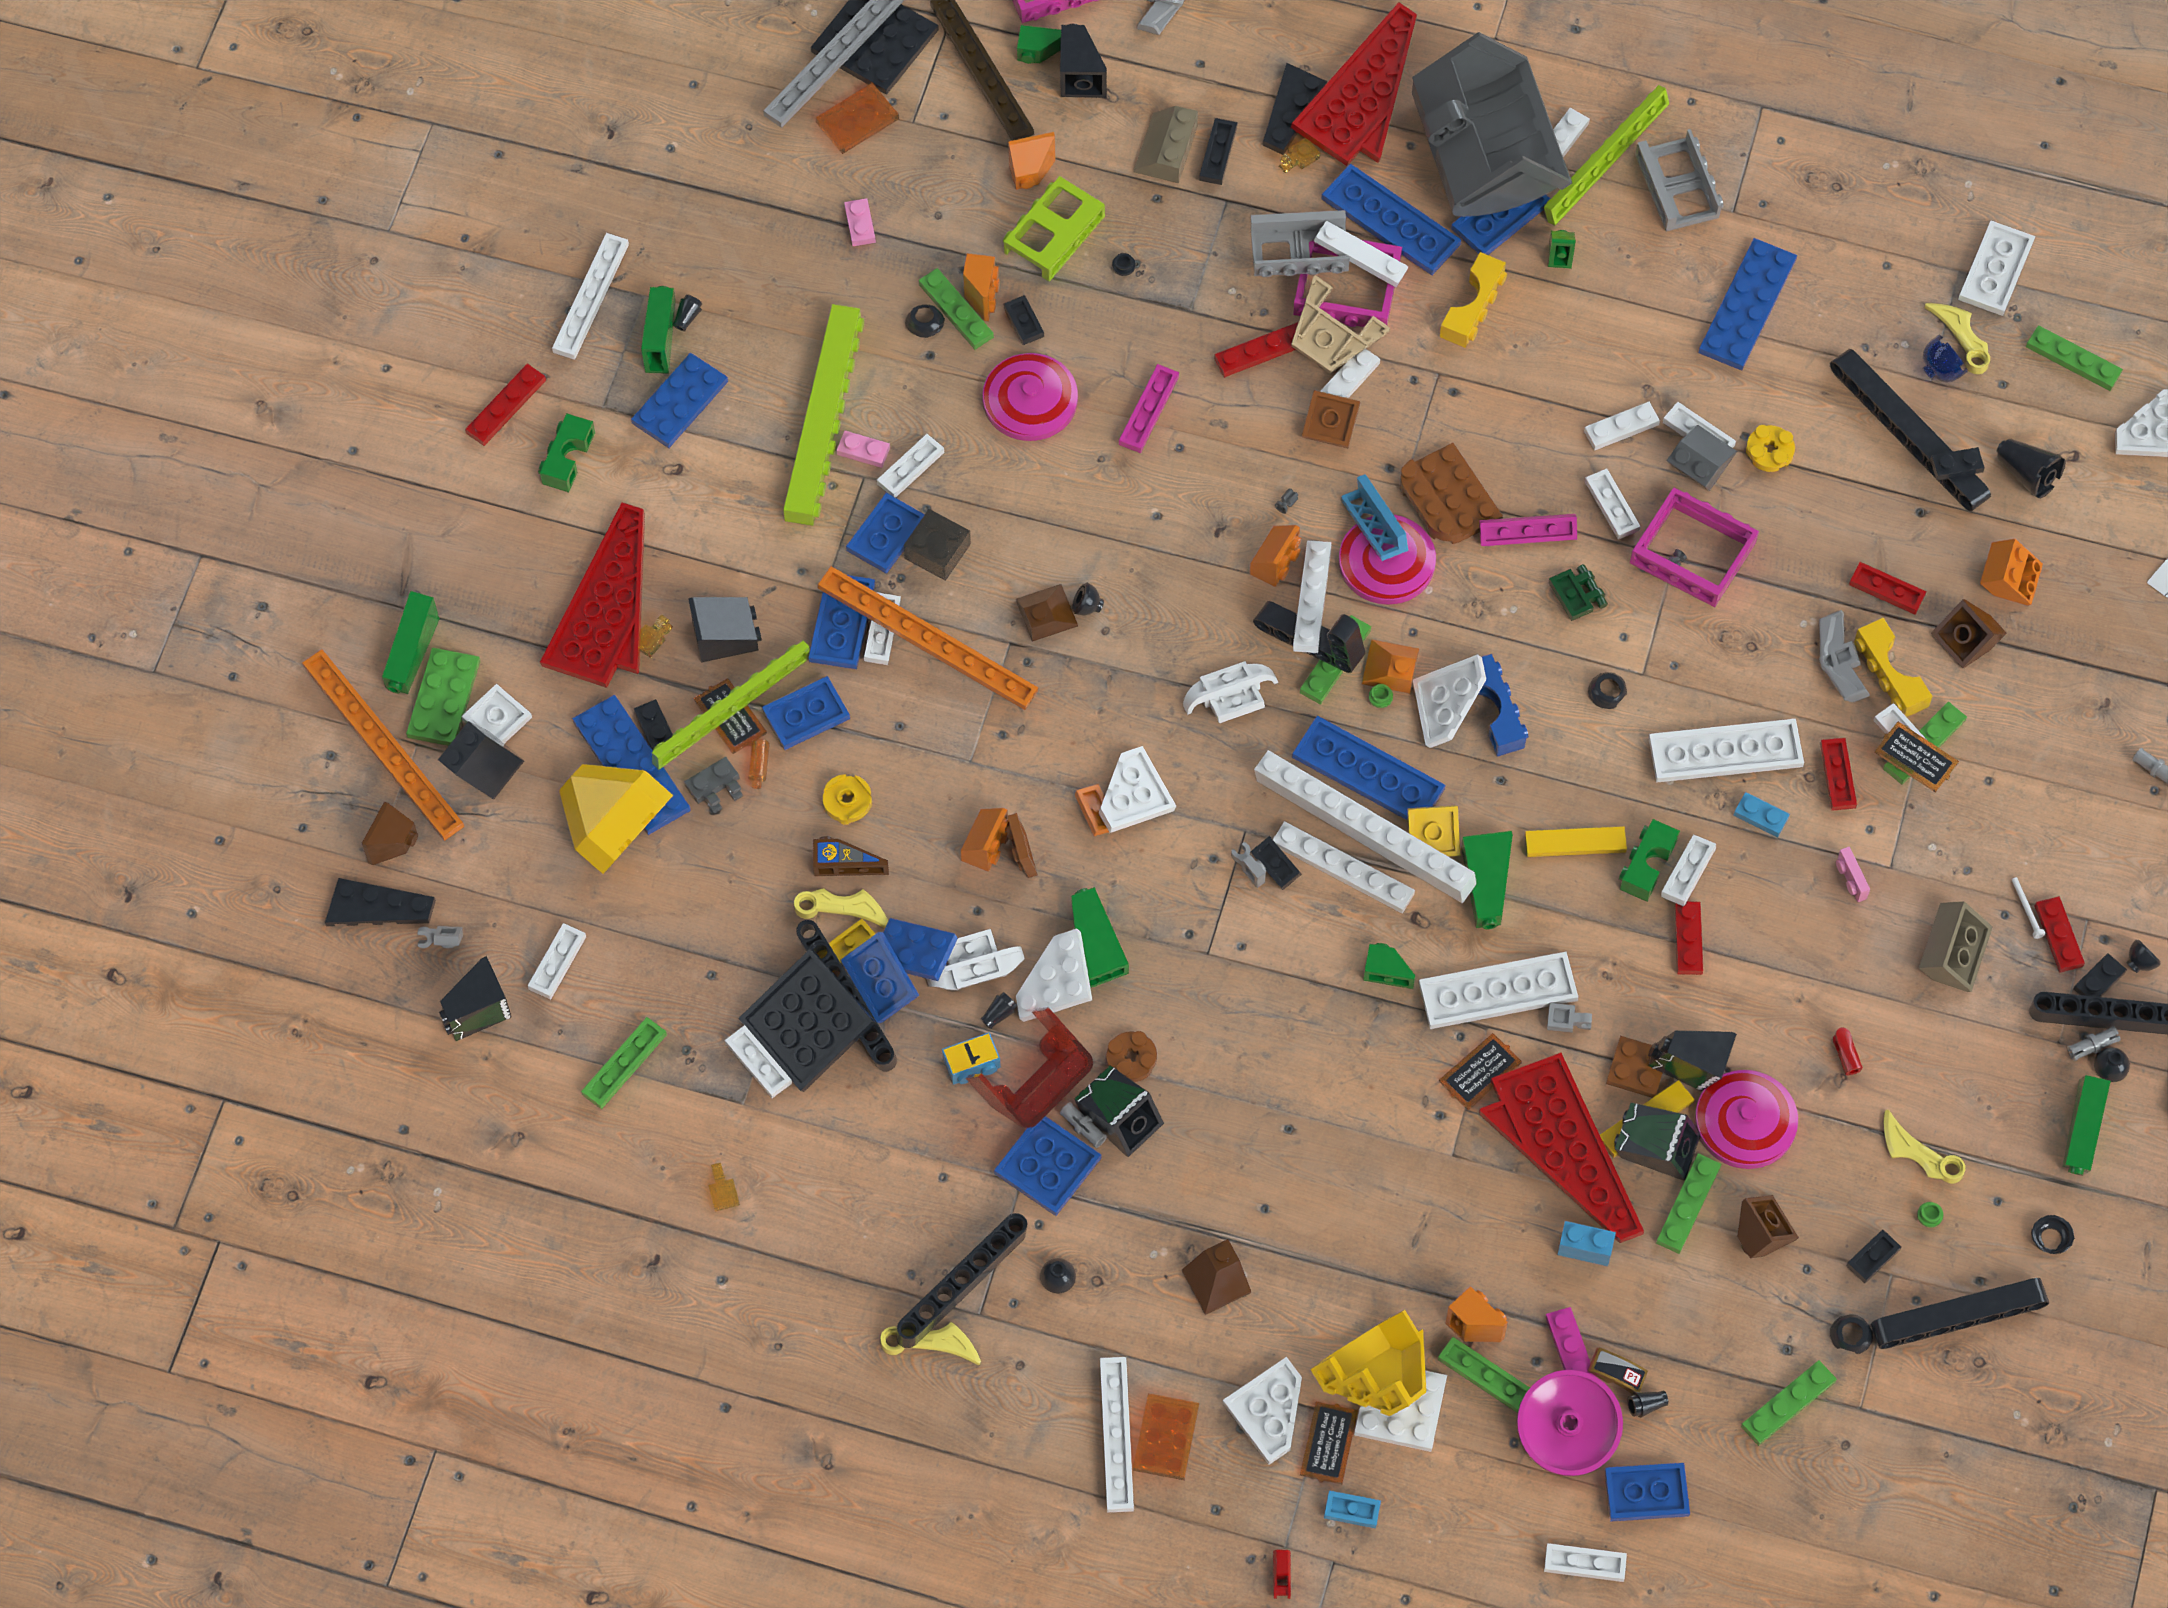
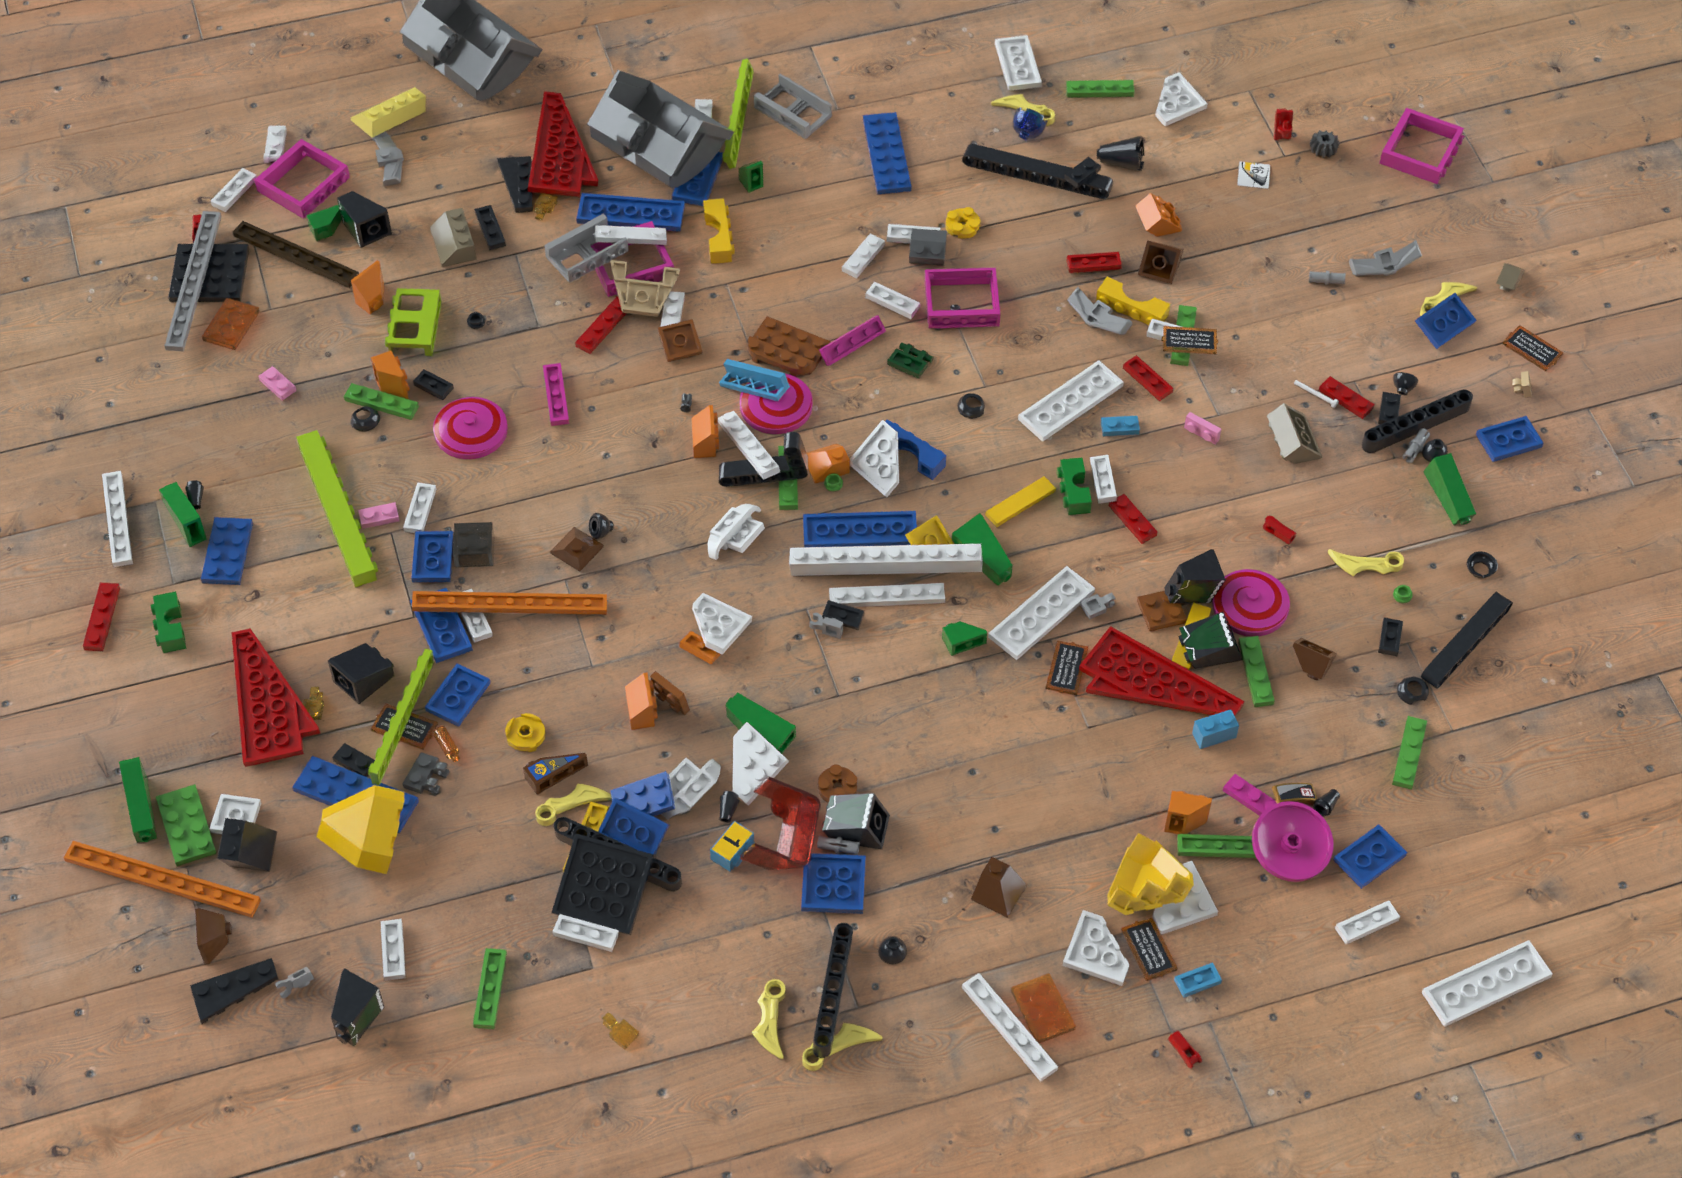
camera: 35 degrees left, 10 degrees down
(867, 1282) = (767, 1031): none -> light yellow piece

